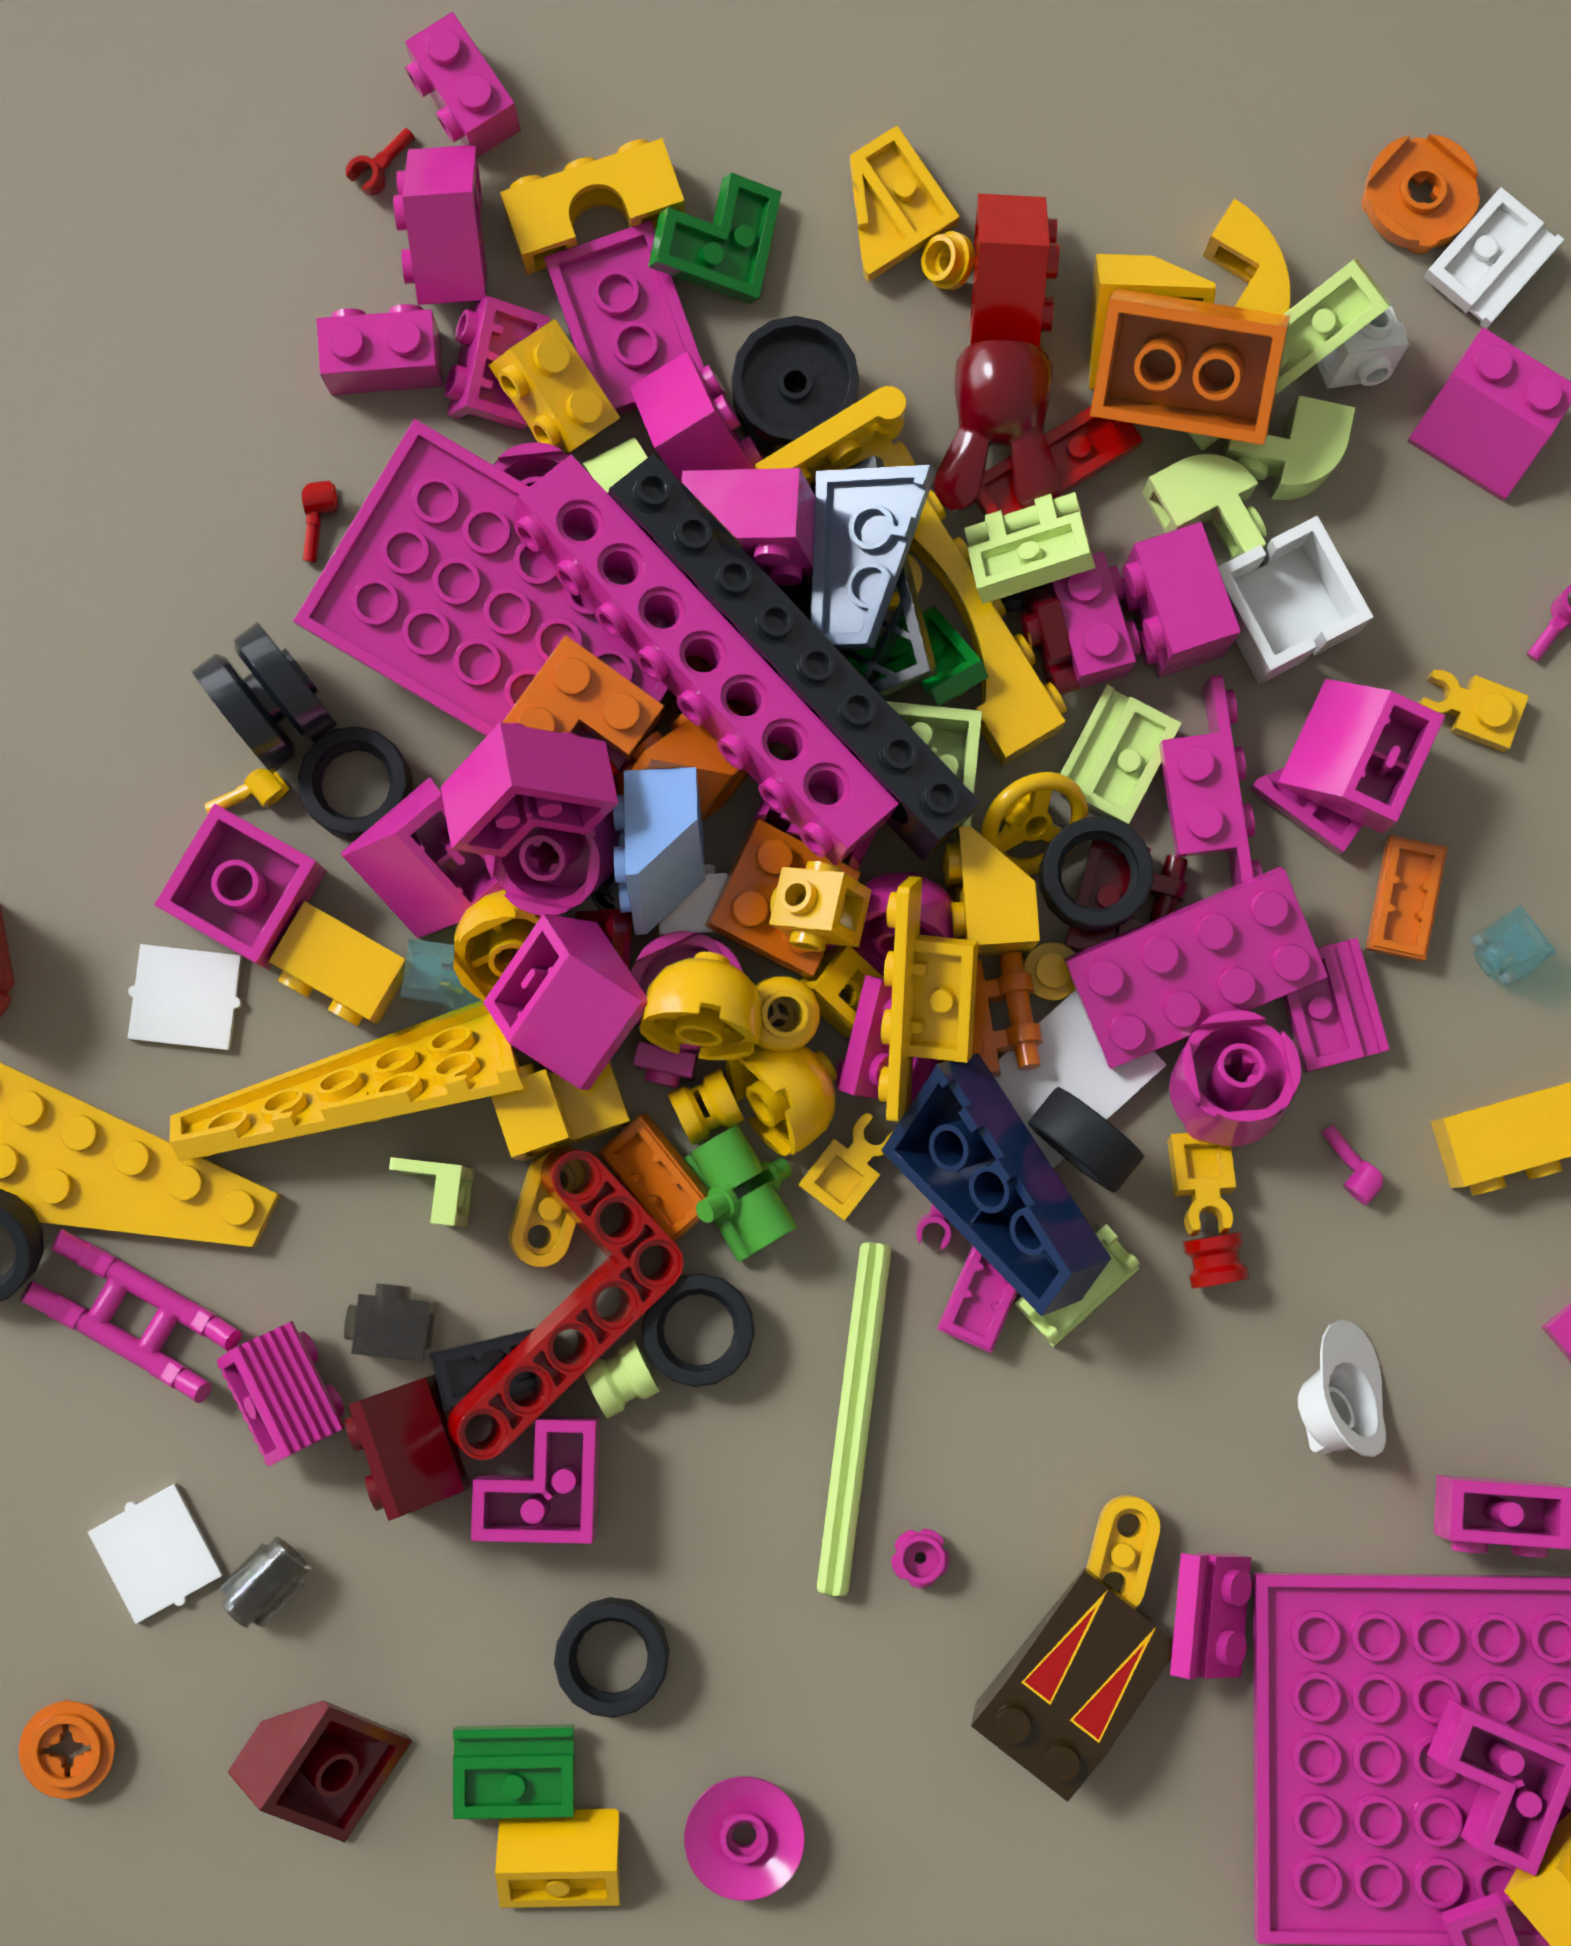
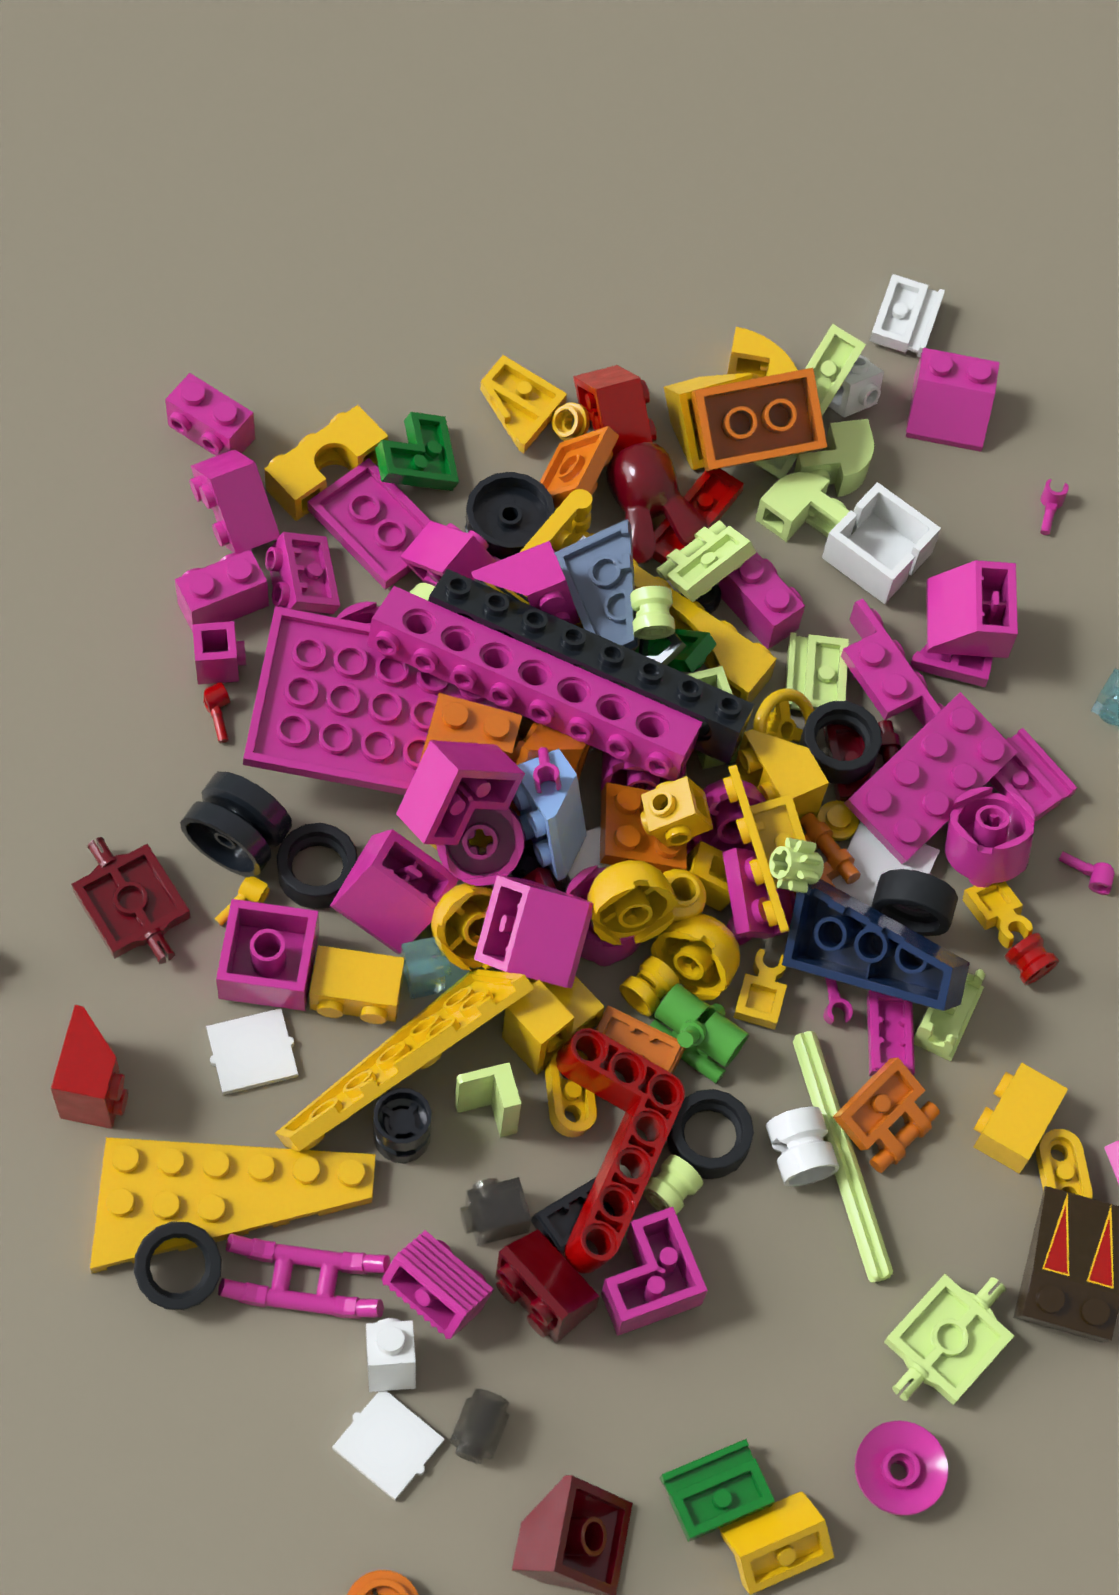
camera: 30 degrees left, 20 degrees down
(107, 743) = (130, 900): none -> dark red plate
(190, 1456) = (390, 1355): none -> white brick
(318, 1174) = (402, 1125): none -> black wheel
(337, 440) = (217, 652): none -> dark pink brick
(378, 163) = (169, 484): red hand -> none
(553, 389) = (350, 570): yellow brick -> none
(608, 1703) = (766, 1349): black tyre -> none
(656, 801) = (545, 771): none -> dark pink hand
(664, 1066) = (609, 967): dark pink plate -> none
(803, 1395) = (804, 1152): none -> white wheel
(877, 1704) = (949, 1339): none -> yellowish green plate
(904, 617) = (652, 614): none -> yellowish green wheel
(918, 339) = (578, 463): none -> orange plate
(924, 1381) = (878, 1105): none -> orange plate
(925, 1573) = (936, 1220): dark pink plate -> none
(937, 1047) = (796, 865): none -> yellowish green gear
(1047, 632) = (739, 610): dark red plate -> none
(1098, 1461) = (1019, 1118): none -> yellow brick
(1178, 600) = (816, 562): dark pink brick -> none
(1406, 898) = (1040, 696): orange plate -> none
(1417, 160) = (845, 312): orange plate -> none
(1481, 711) = (1034, 572): yellow plate -> none

